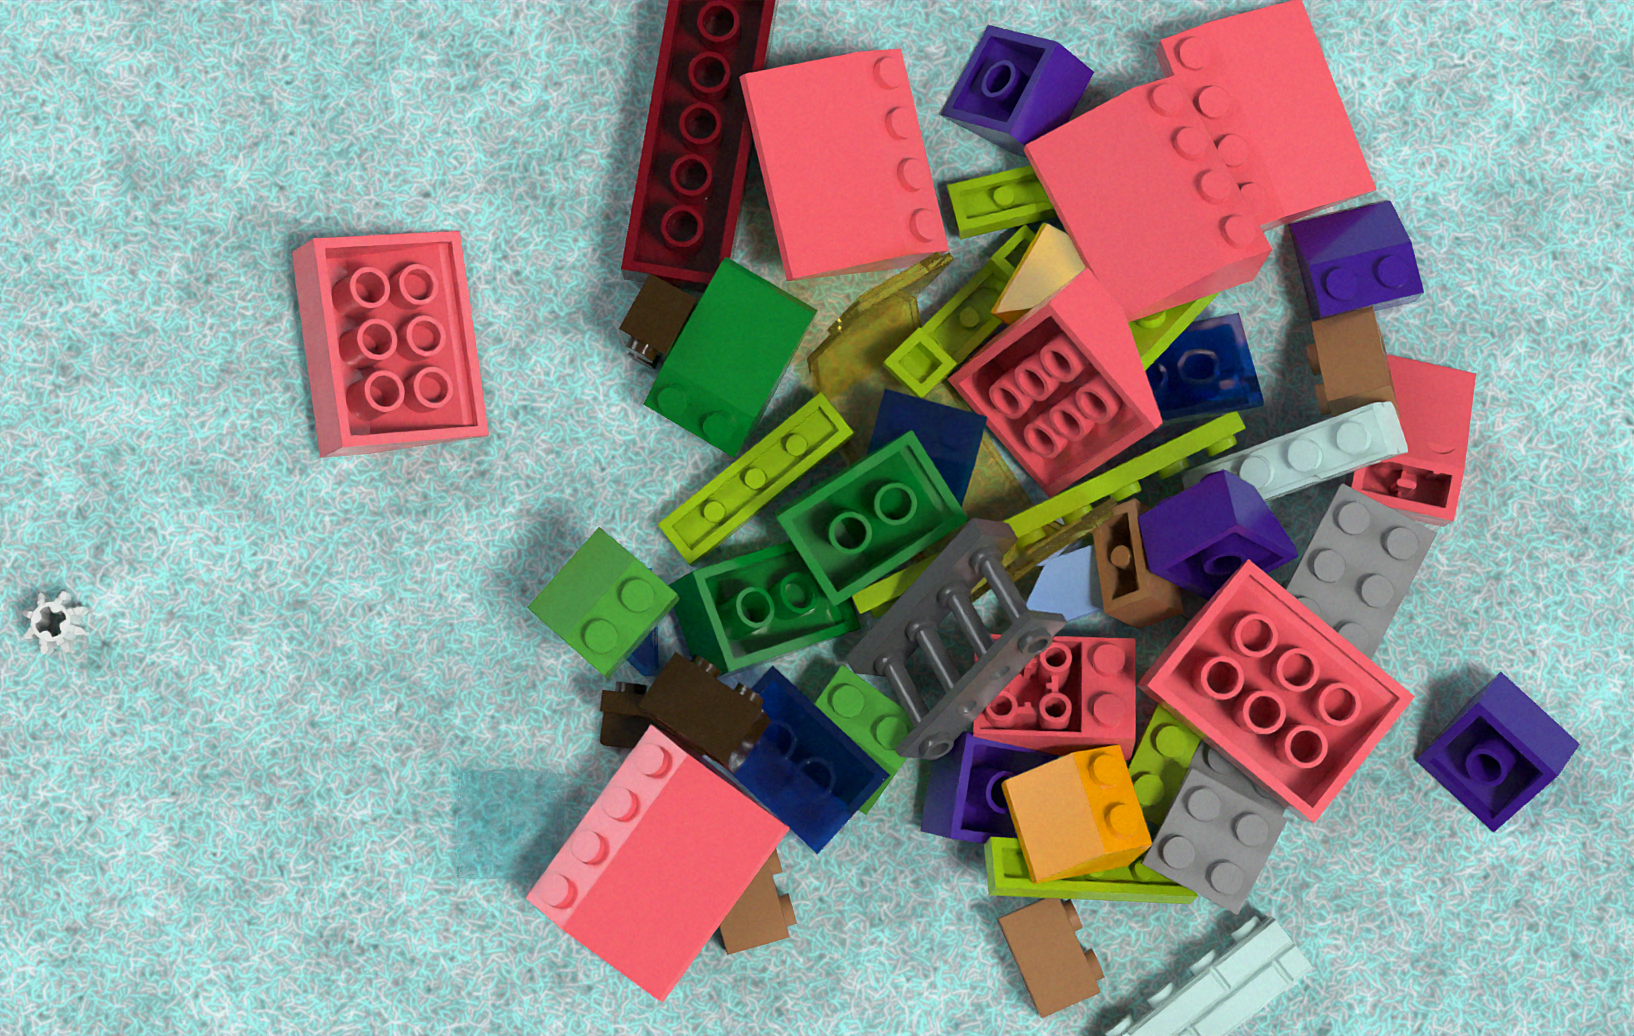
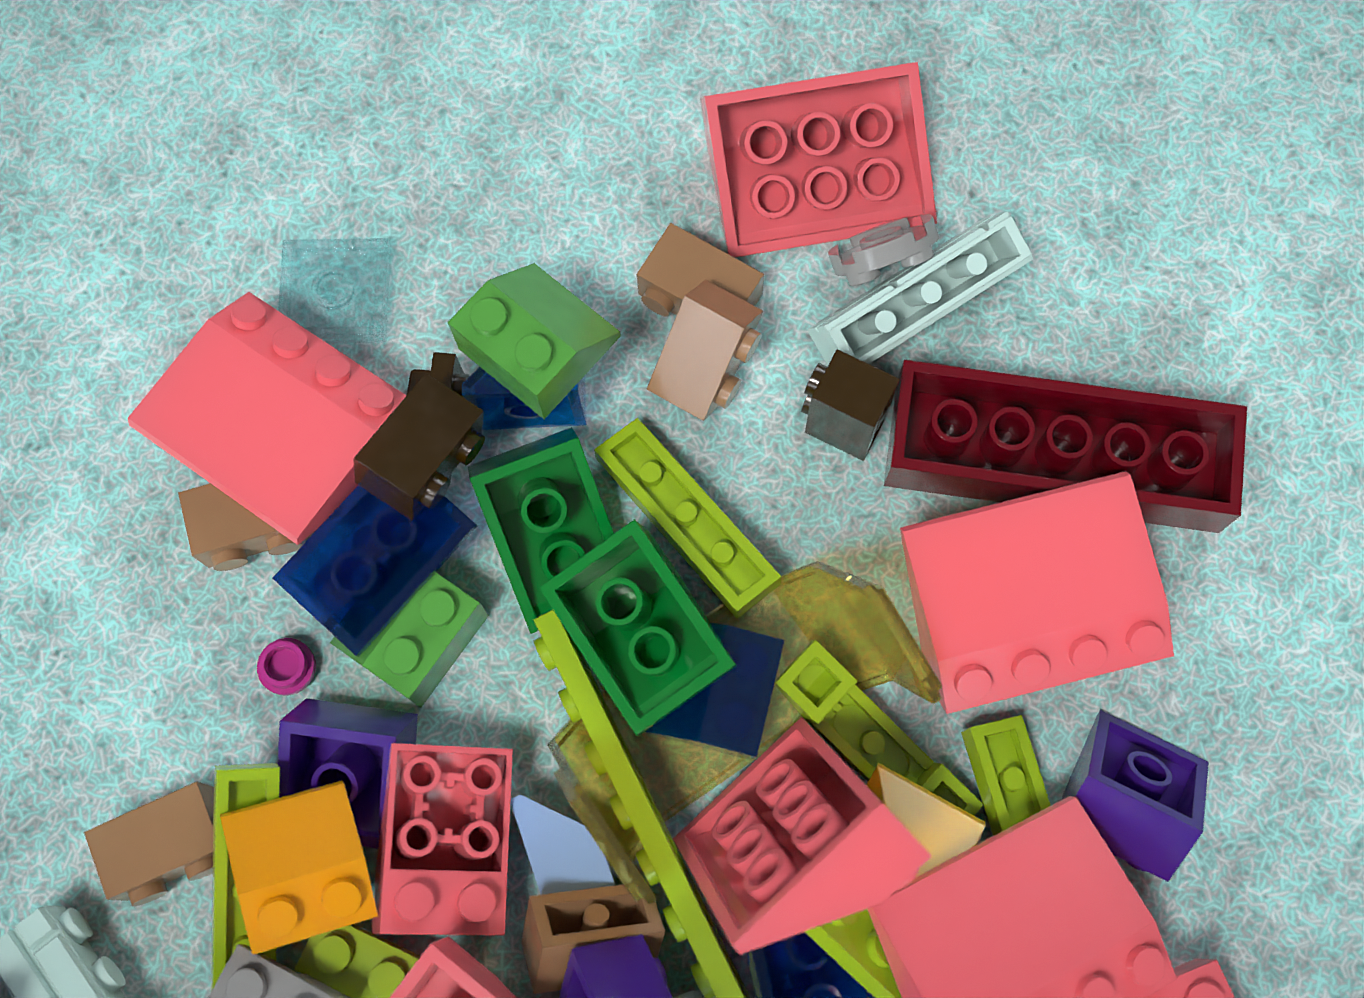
camera: 90 degrees right, 10 degrees down
(498, 281) = (885, 246): none -> light grey plate
(524, 463) = (685, 261): none -> medium nougat brick
(545, 250) = (924, 291): none -> light aqua brick
(600, 454) = (705, 350): none -> brick
(730, 357) = (813, 476): green slope -> none
(888, 853) = (286, 666): none -> dark pink plate
(915, 623) = (521, 677): dark grey fence -> none

